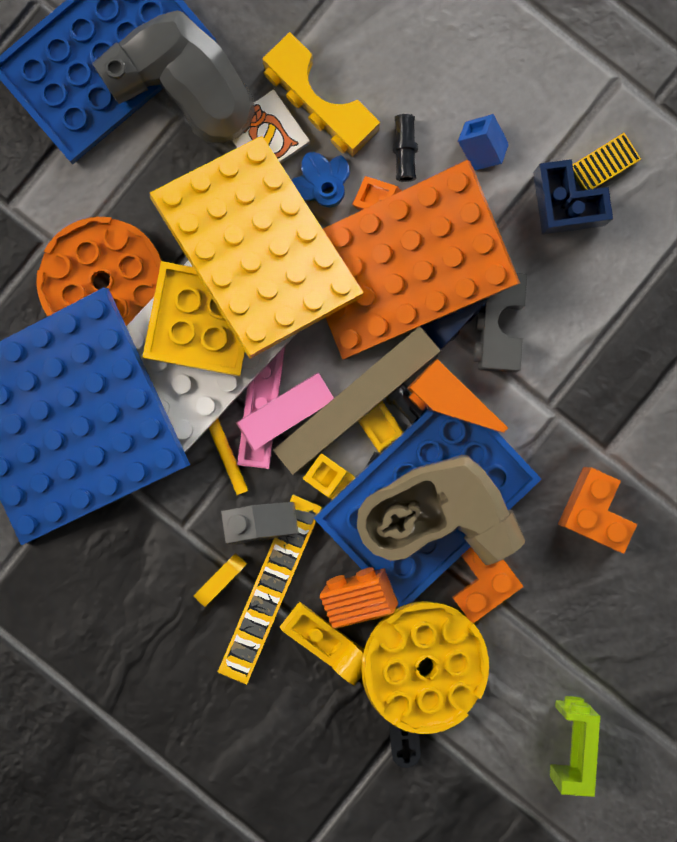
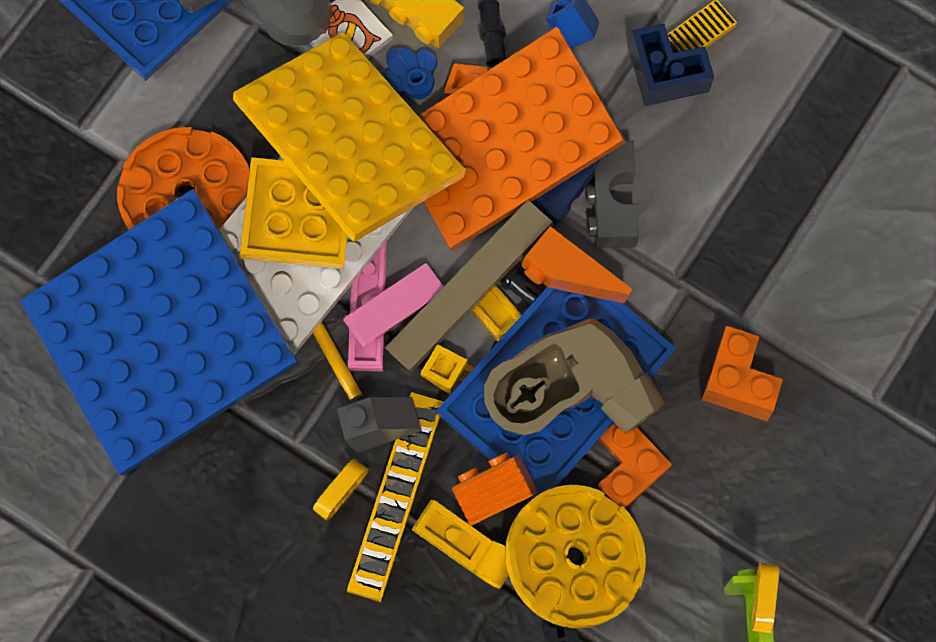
camera: 10 degrees left, 15 degrees down
(594, 742) = (765, 598): none -> yellow beam

